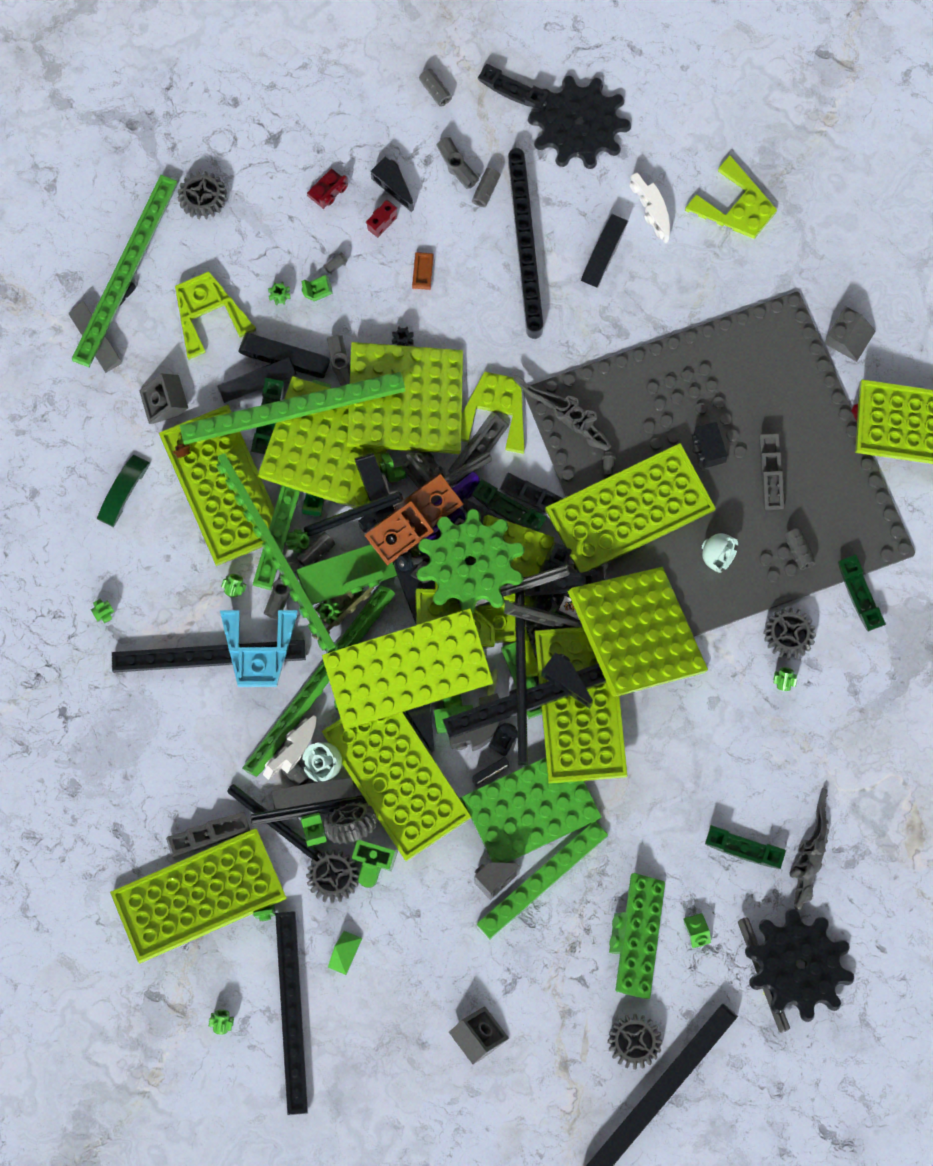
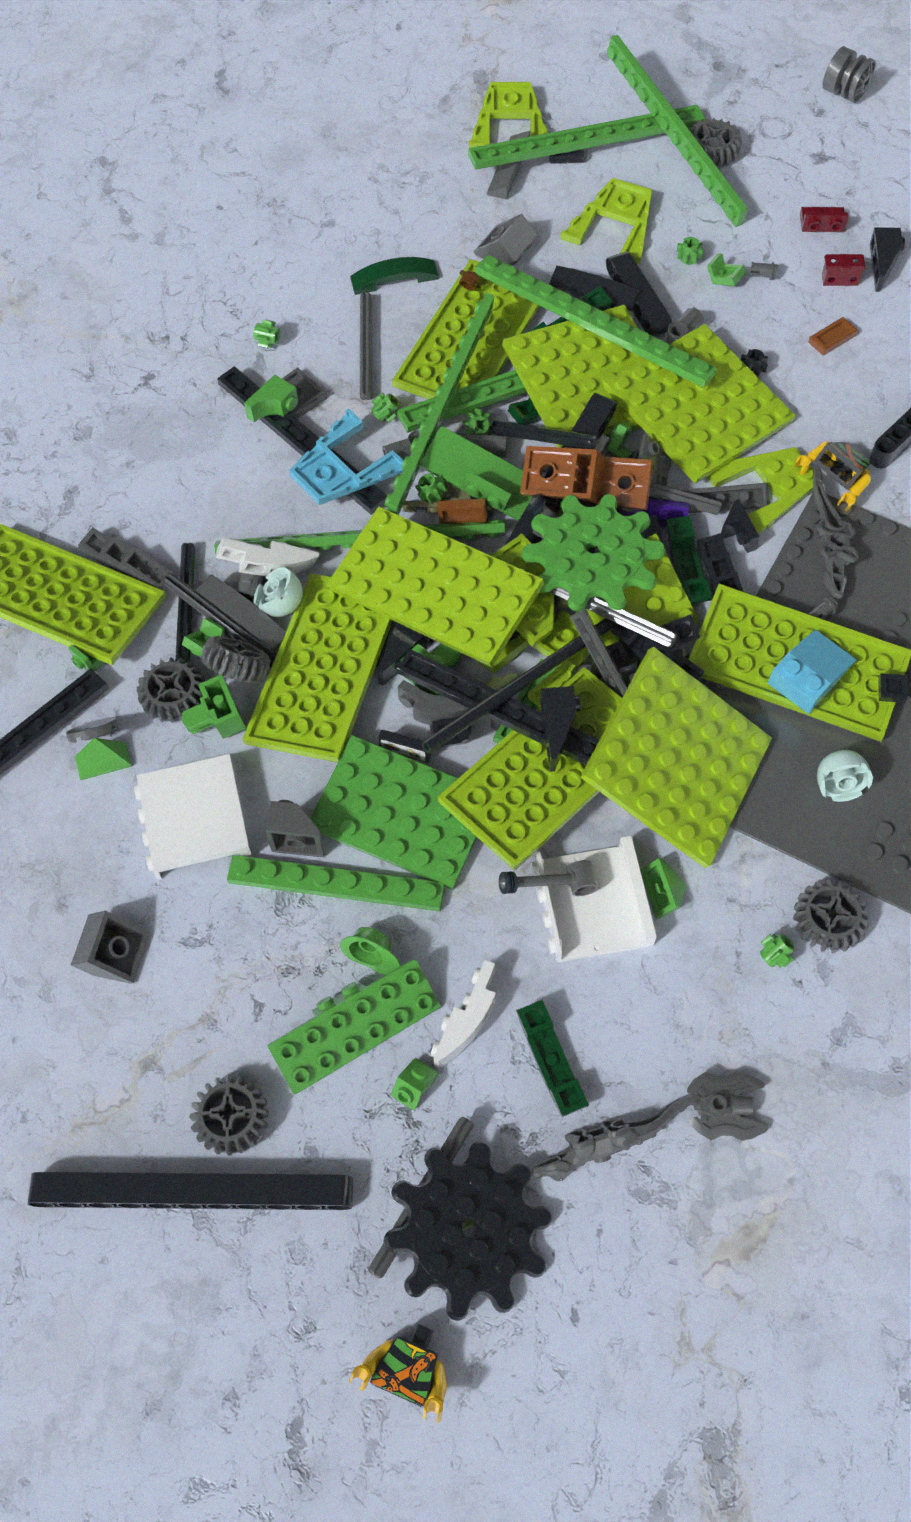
camera: 50 degrees right, 10 degrees down
(39, 287) = (507, 101): none -> lime wing
(166, 630) = (308, 392): none -> dark grey tile
(167, 556) = (366, 346): none -> dark grey axle
(169, 648) = (272, 398): none -> bright green arch
(171, 211) = (677, 131): none -> bright green plate
(231, 61) = (848, 74): none -> dark grey wheel
(324, 942) = (92, 729): none -> dark grey tile
(360, 606) = (462, 511): none -> dark orange tile
(432, 927) = (191, 814): none -> white panel
(508, 453) = (739, 524): none -> black slope
(527, 360) = (842, 464): none -> torso
(603, 891) = (370, 949): none -> bright green piece
(646, 509) = (810, 671): none -> medium azure slope
(656, 745) = (579, 877): none -> dark grey piece
(674, 748) = (601, 922): none -> white panel
(688, 877) = (463, 1026): none -> white slope
(694, 477) = (892, 688): none -> black plate
(698, 705) = (663, 887): none -> bright green slope
(841, 782) = (722, 1106): none -> dark grey piece
(844, 1052) = (407, 1371): none -> torso

